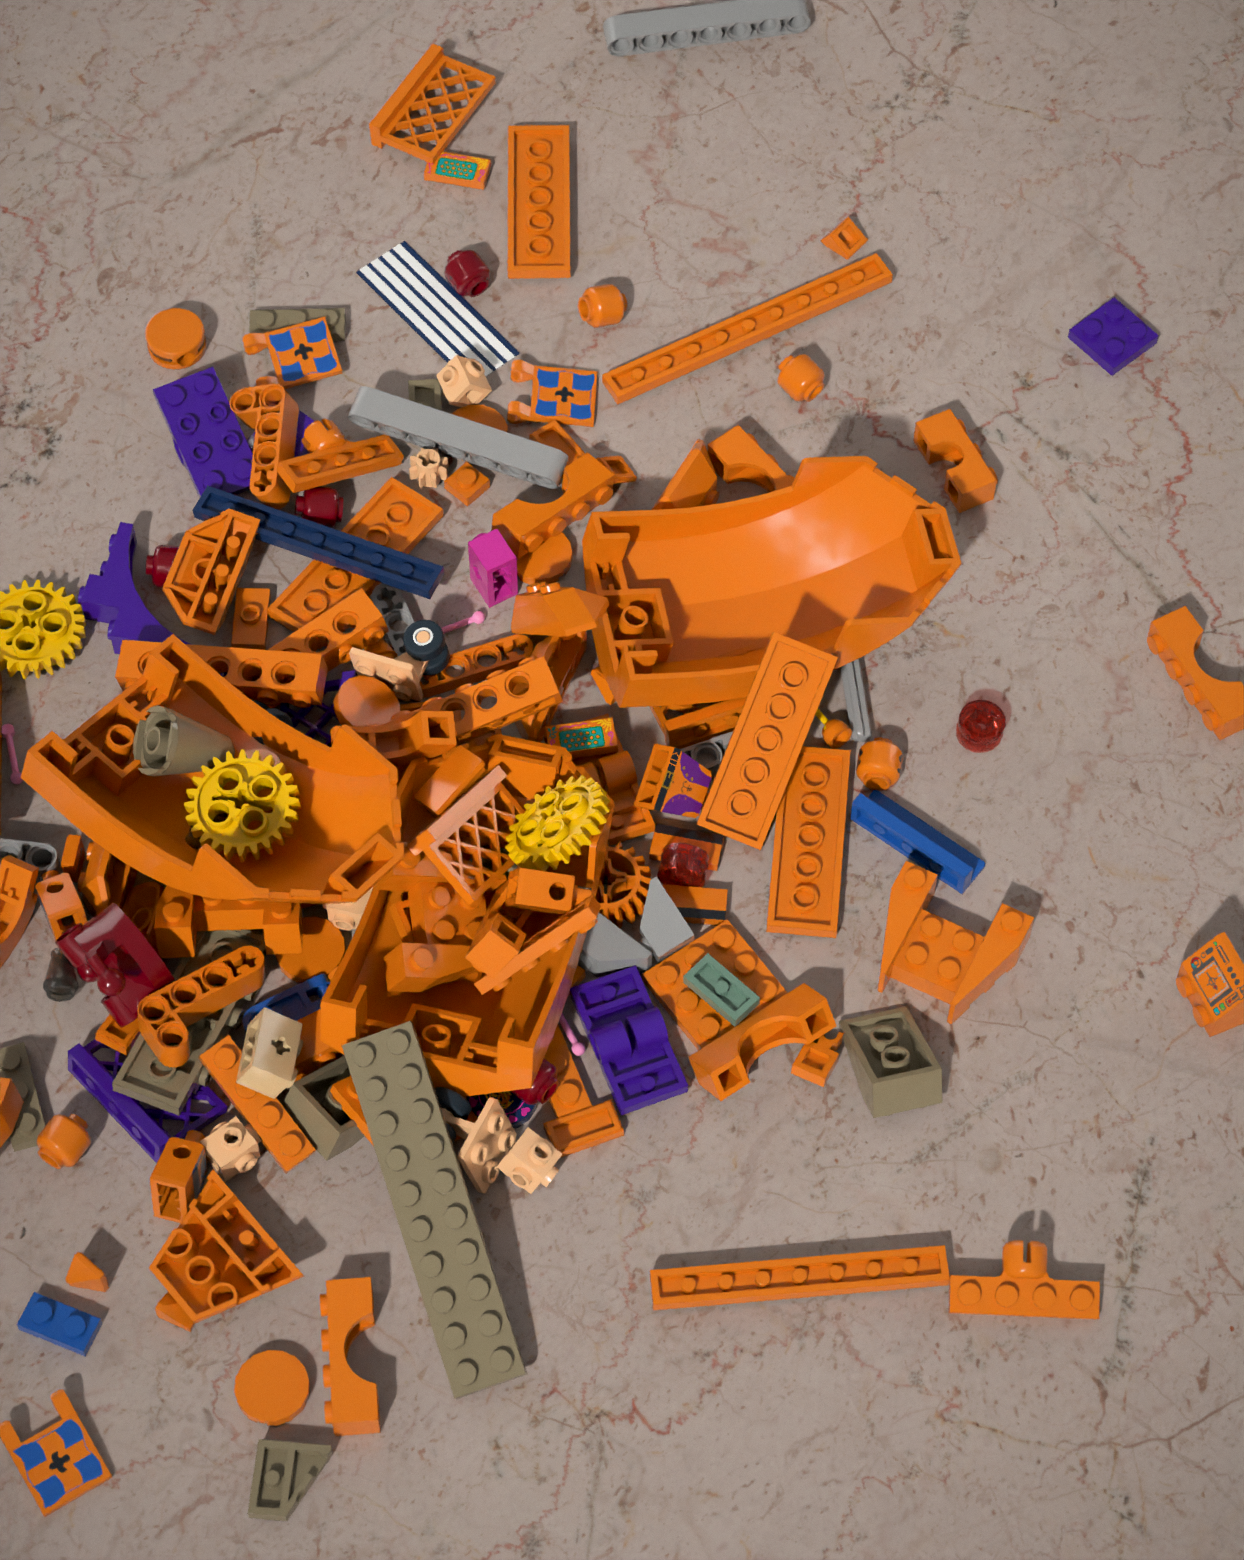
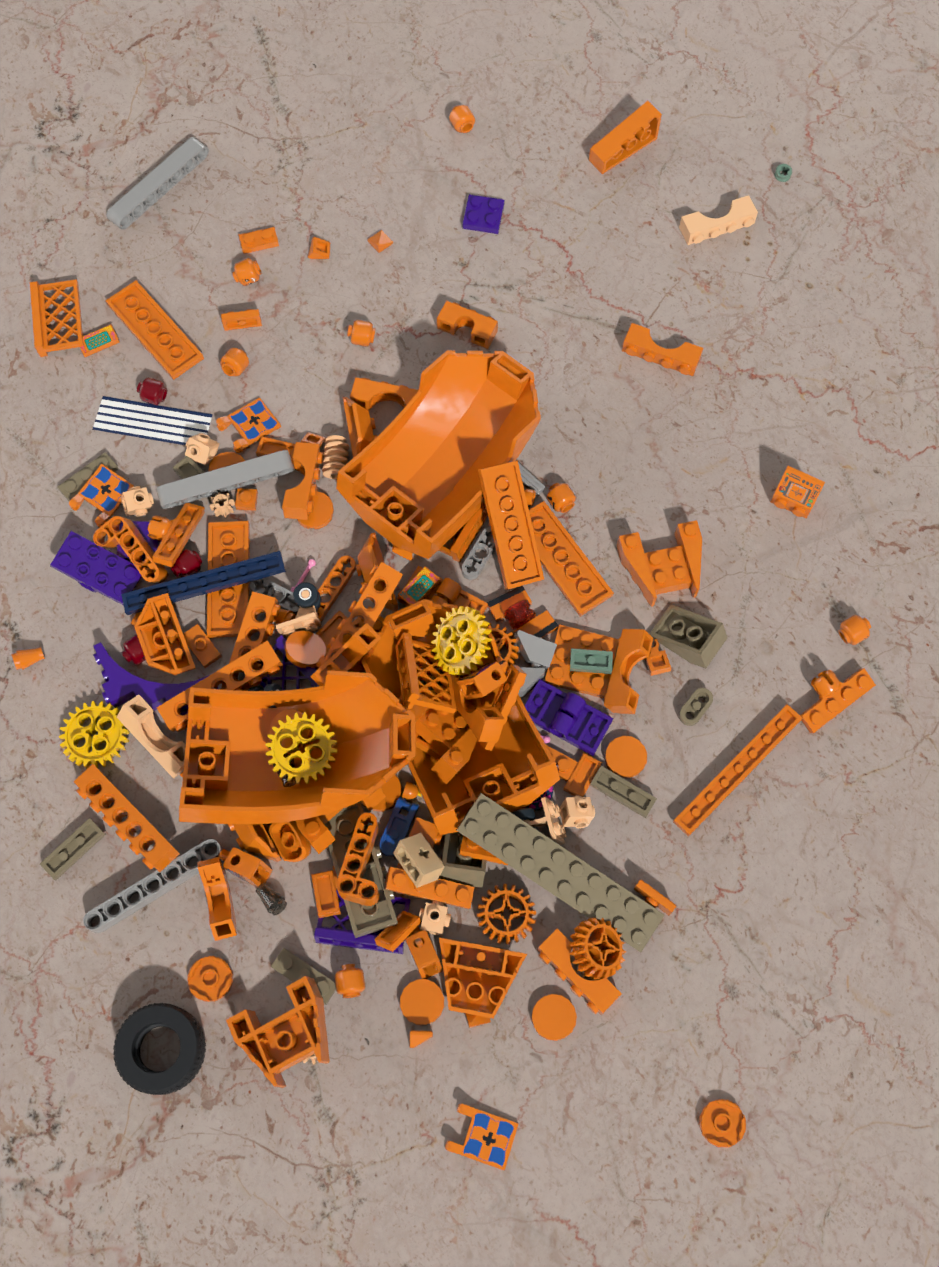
camera: 40 degrees left, 10 degrees up
(8, 732) = (155, 815): bright pink hinge -> none
(34, 484) = (27, 657): none -> orange cone
(59, 1324) = (427, 1071): blue plate -> none
(73, 857) = (223, 835): orange tile -> none
(93, 648) = (140, 721): none -> light nougat arch
(118, 958) = (304, 872): dark red piece -> none
(128, 1238) = (422, 1002): none -> orange tile
(162, 1122) = (393, 936): none -> orange tile
(175, 338) = (31, 528): orange head -> none
(177, 744) = (241, 743): dark tan cone -> none
(284, 1476) = (598, 1056): dark tan wing -> none
(327, 391) = (137, 501): none -> light nougat brick
(340, 1192) = (516, 913): none -> orange gear
(377, 1320) = (602, 946): none -> orange gear
(450, 781) = (389, 658): orange panel -> none
(493, 567) = (301, 533): dark pink brick -> none
(533, 1346) = (654, 898): none -> orange plate
(556, 610) = (360, 534): orange wedge -> none
(617, 1187) = (623, 791): none -> dark tan plate
(630, 496) = (334, 455): none -> light nougat piece
(659, 259) = (241, 319): none -> orange plate
(663, 1149) = (626, 756): none -> orange tile
(673, 783) = (483, 578): torso -> none
(720, 205) = (247, 272): none -> orange head
(746, 328) = (313, 327): orange plate -> none
(774, 177) = (258, 240): none -> orange plate
(814, 1154) = (696, 708): none -> dark tan plate
(916, 840) = (608, 521): blue panel -> none
(937, 281) = (380, 241): none -> orange slope
(972, 735) = (591, 452): clear red wheel -> none
(1134, 1224) = (854, 630): none -> orange head
(1194, 193) = (462, 118): none -> orange head

